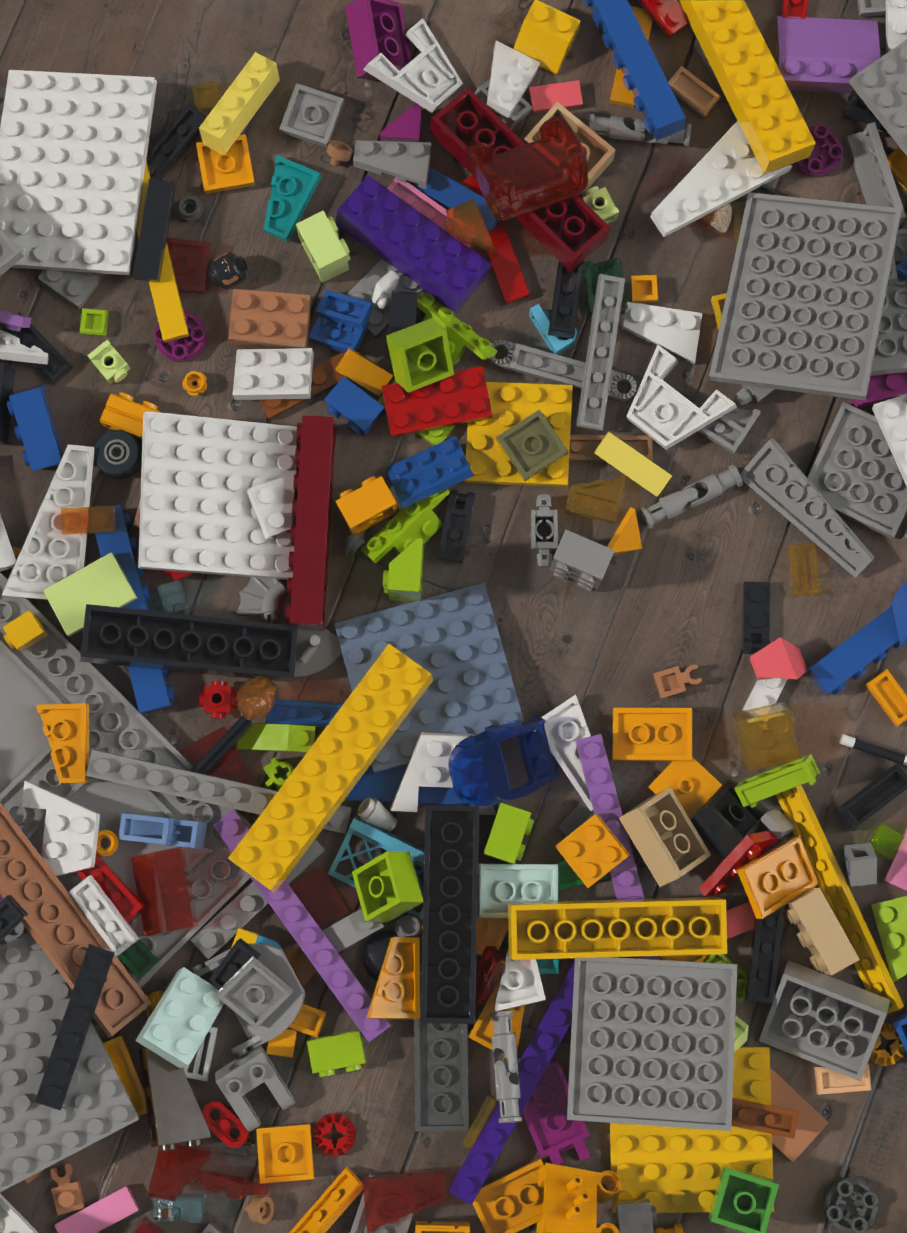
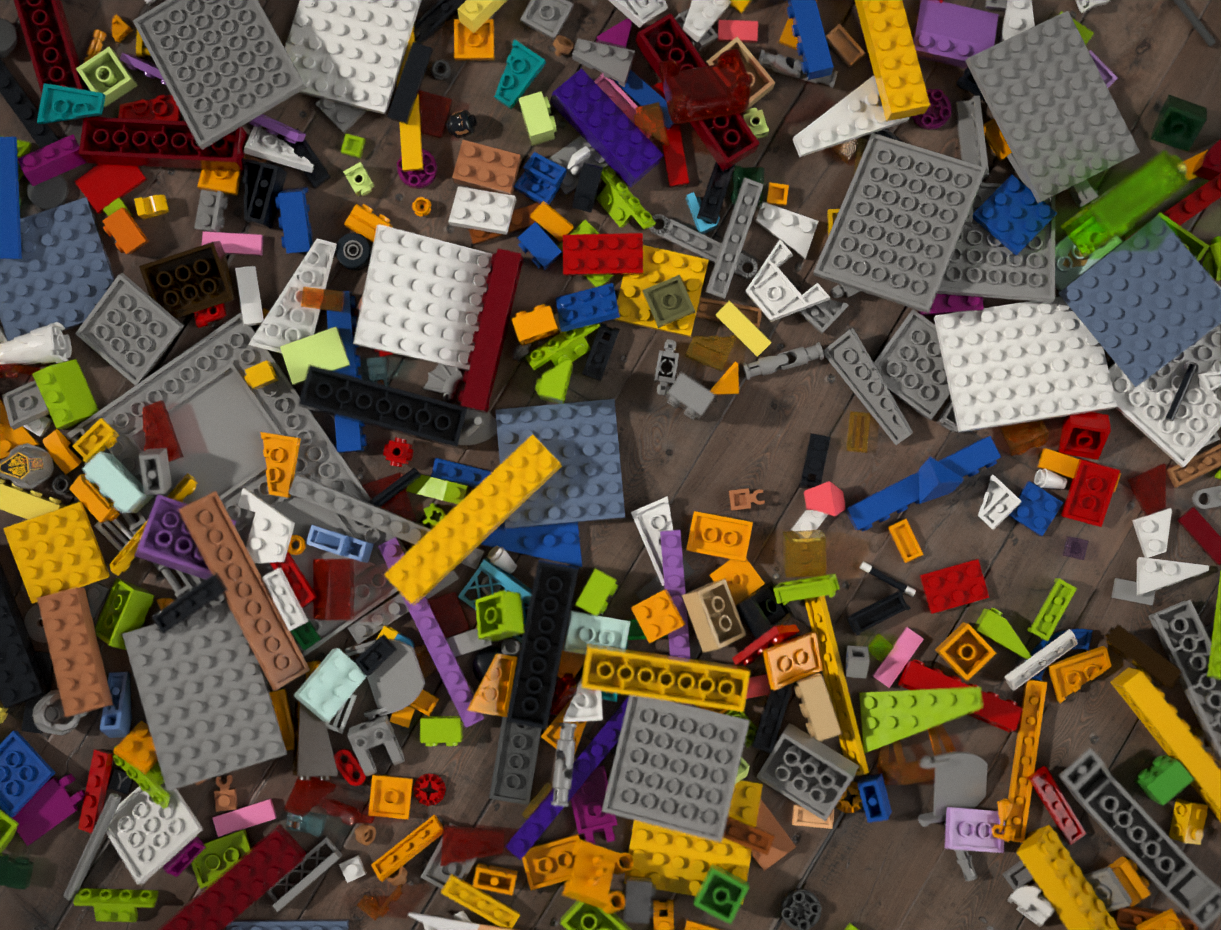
camera: 15 degrees right, 5 degrees up
(74, 1027) = (249, 678): black plate -> none
(254, 992) = (387, 676): light grey tile -> none
(256, 697) = (426, 456): clear orange hair -> none
(273, 505) = (464, 312): white wing -> none
(420, 355) = (596, 217): lime brick -> none
(429, 769) = (558, 530): white wing -> none
(479, 767) = (584, 543): clear blue slope -> none
(777, 823) = (801, 619): light grey tile -> none

